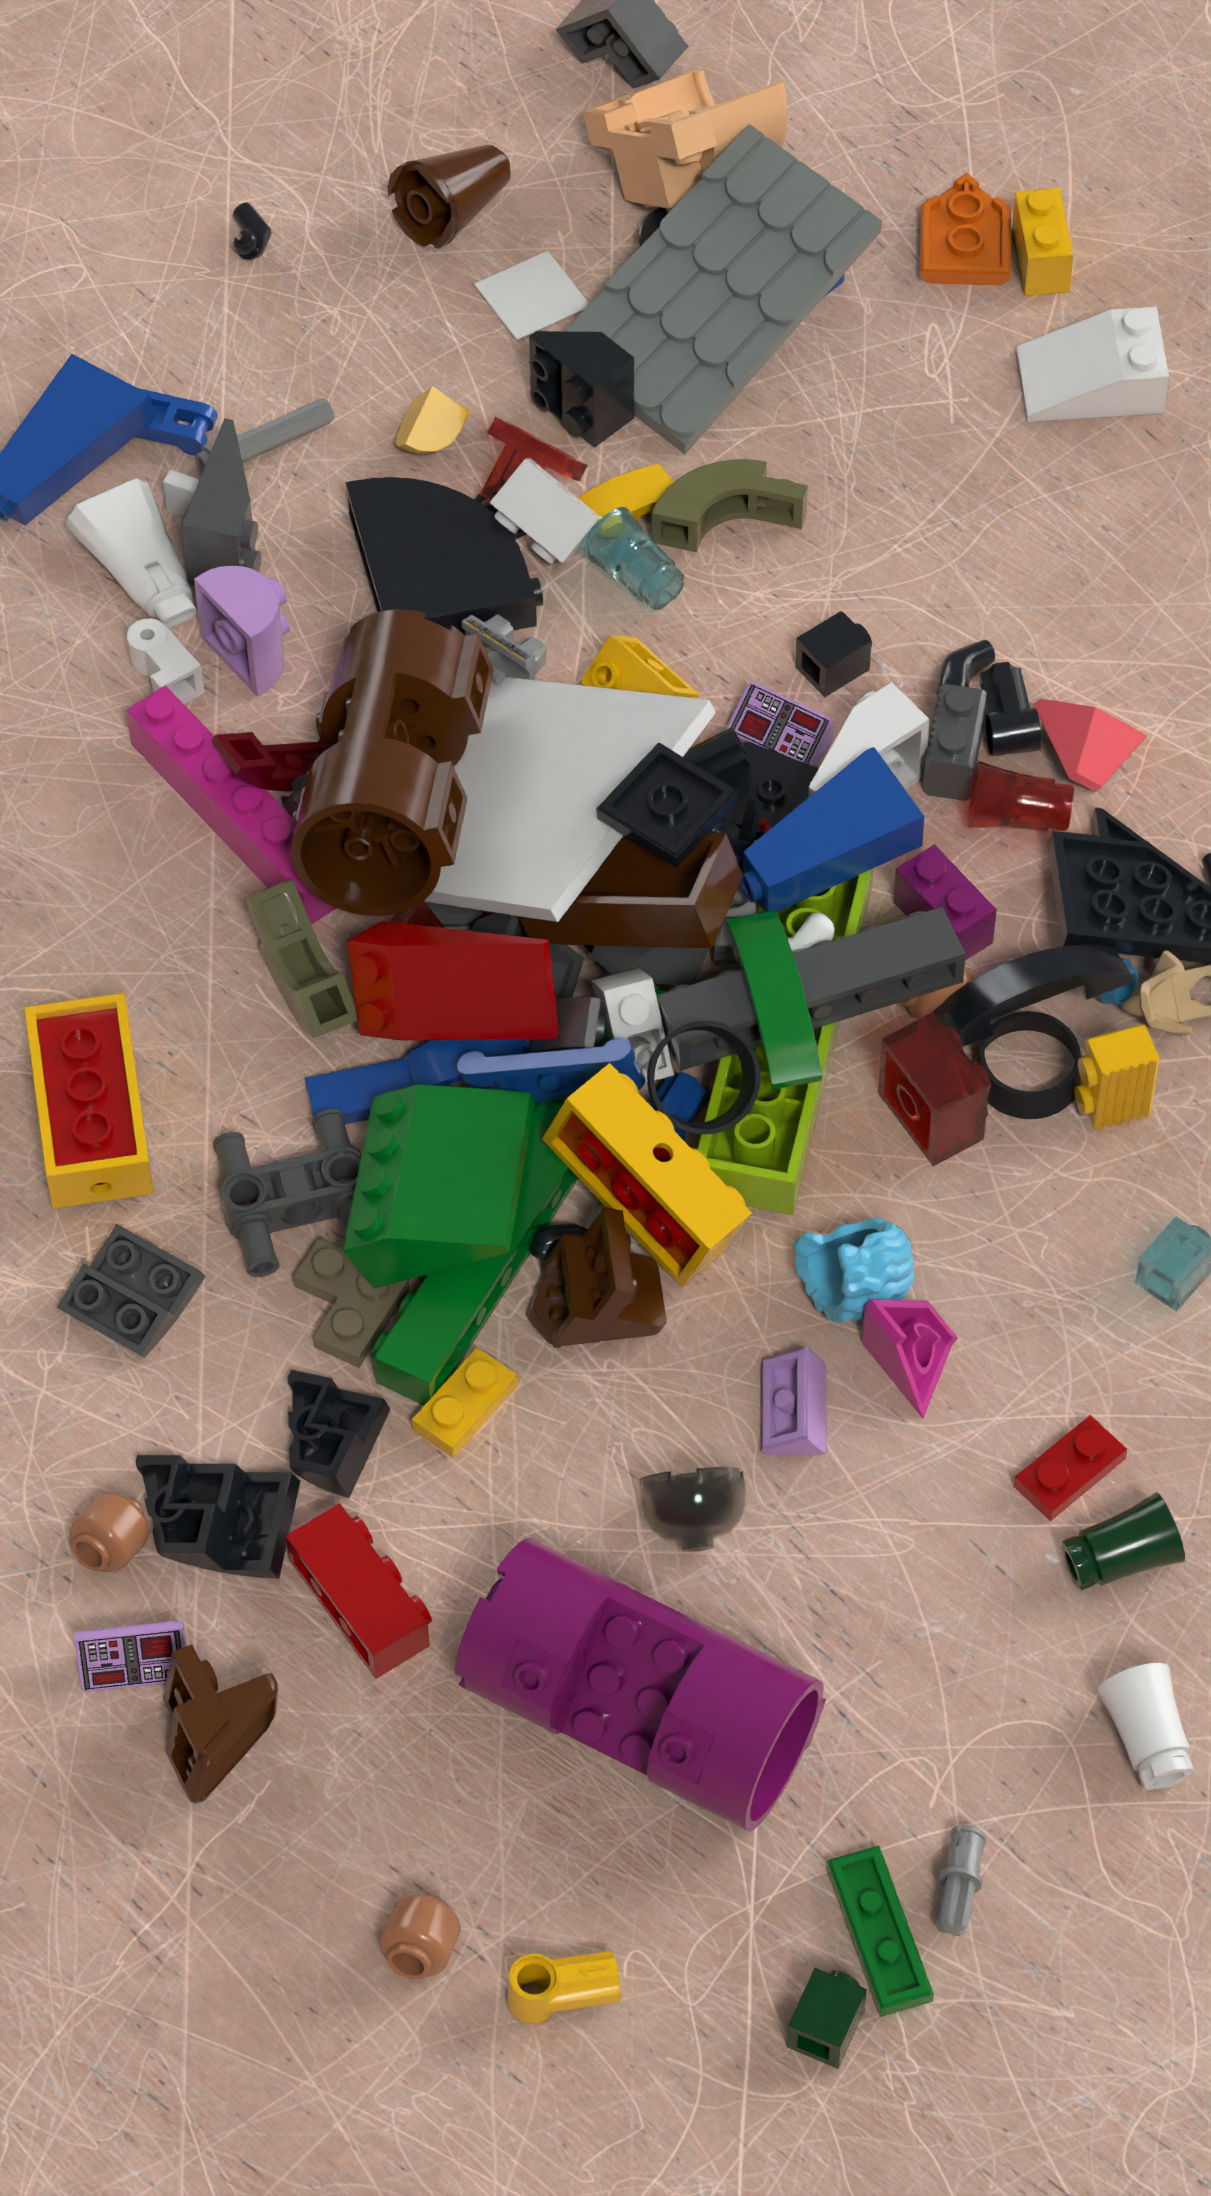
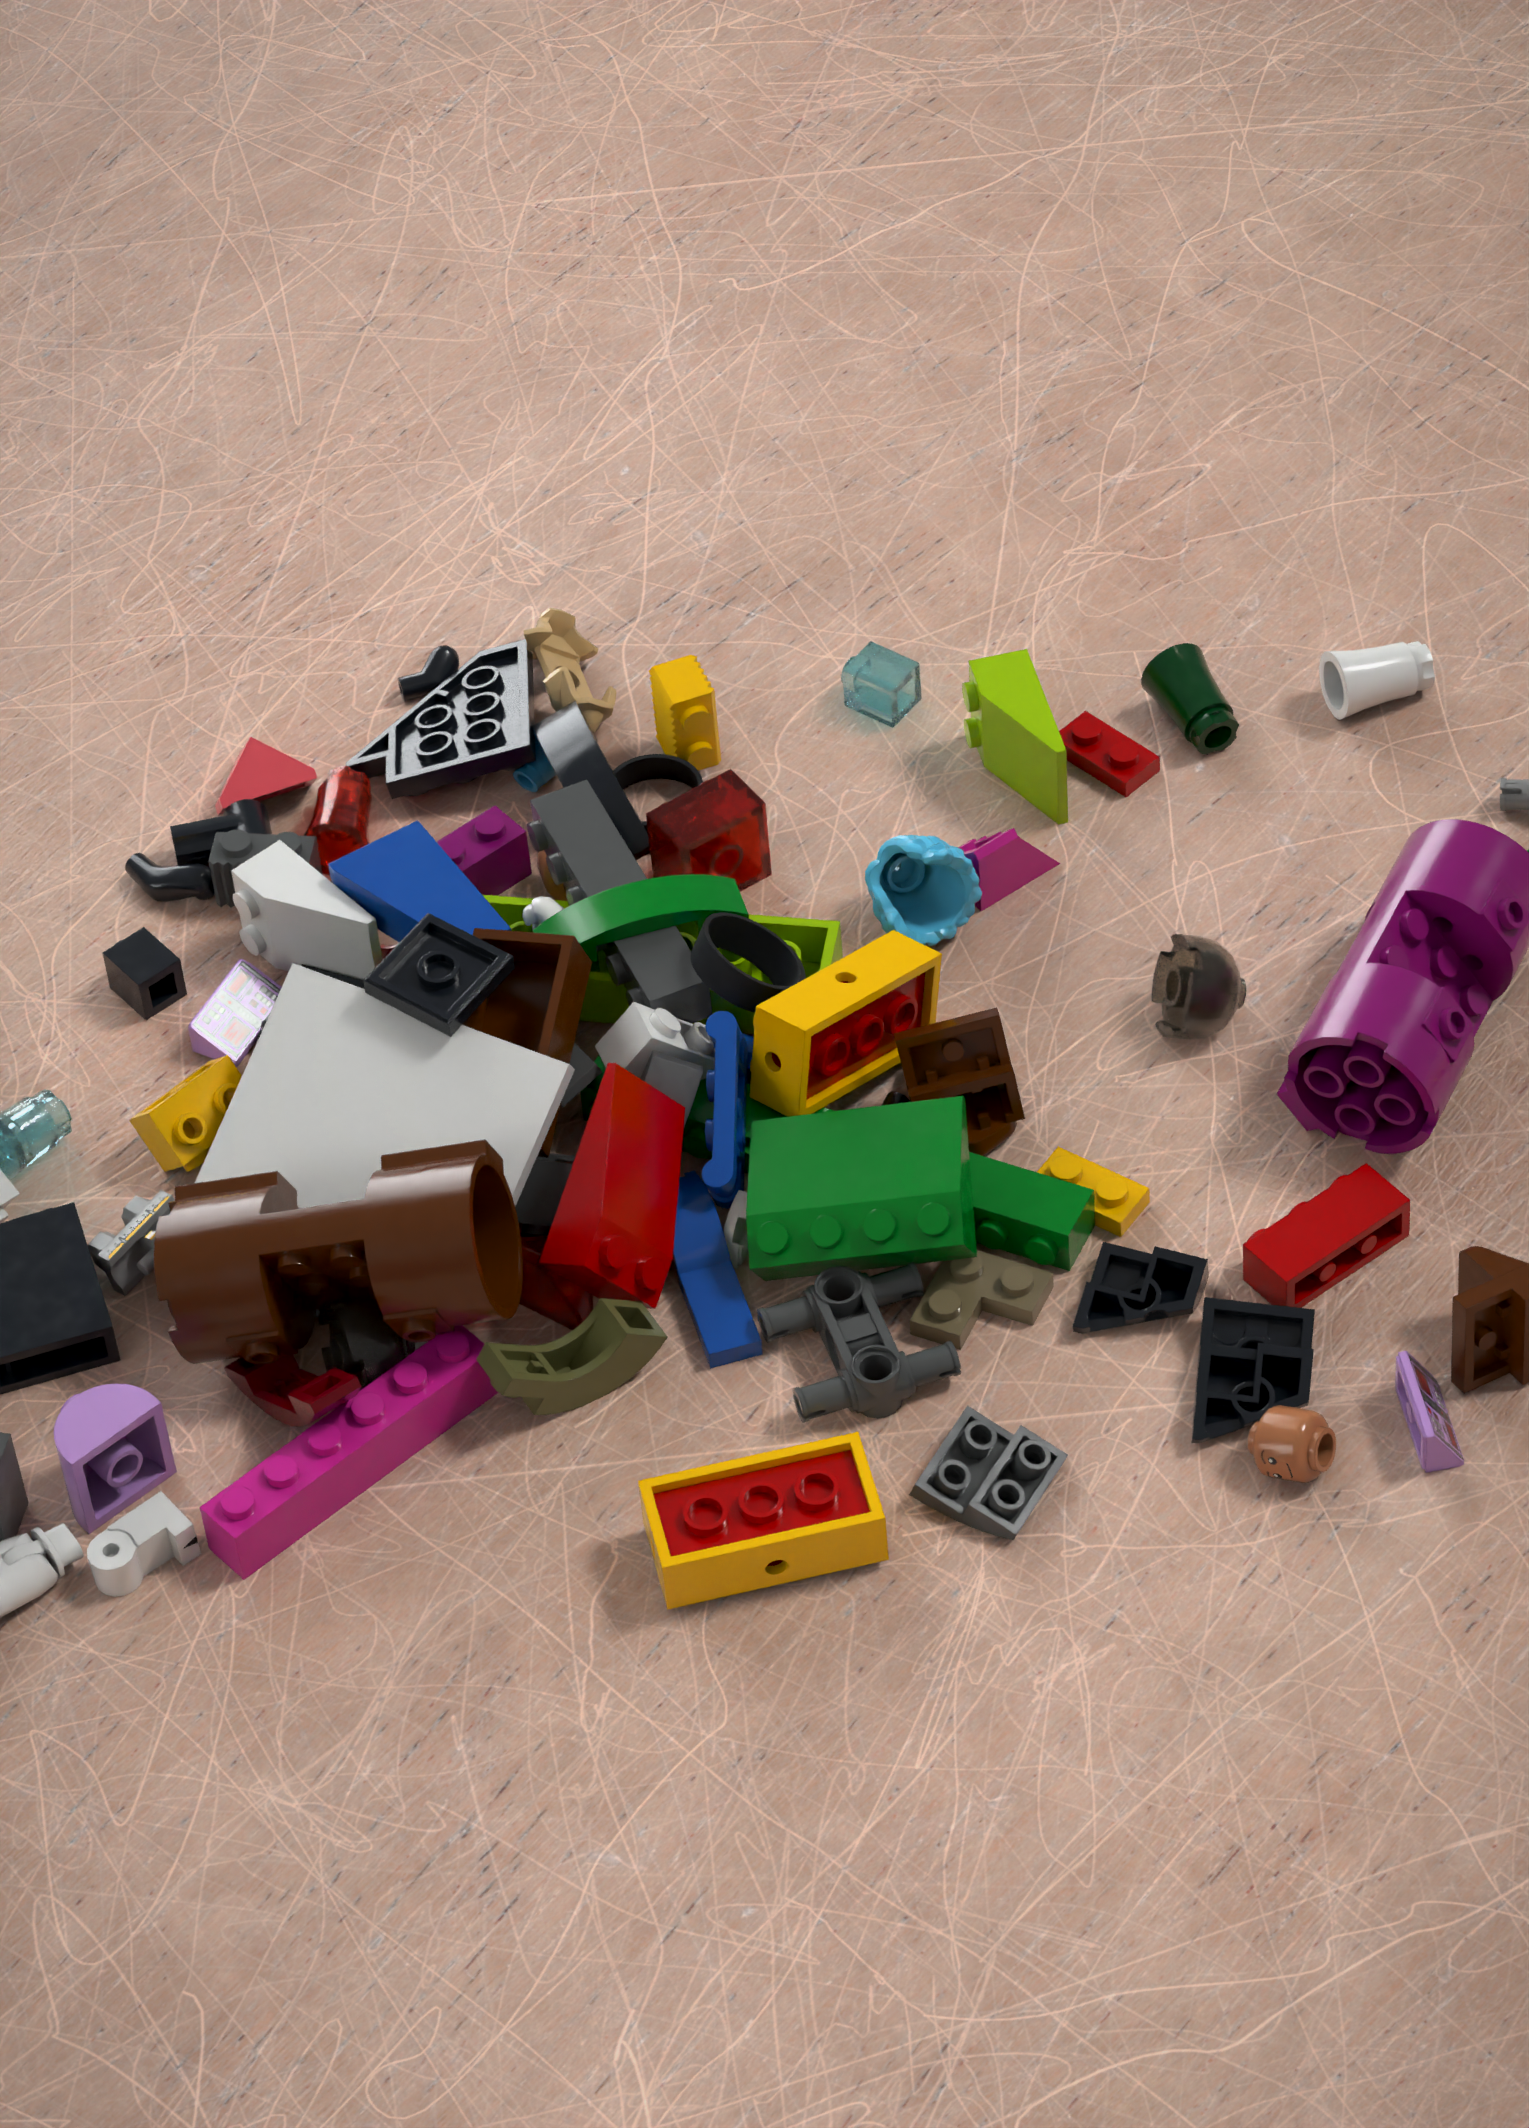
camera: 90 degrees left, 10 degrees down
(794, 1404) = (1060, 948): lavender slope -> none
(1070, 1370) = (1017, 730): none -> lime slope

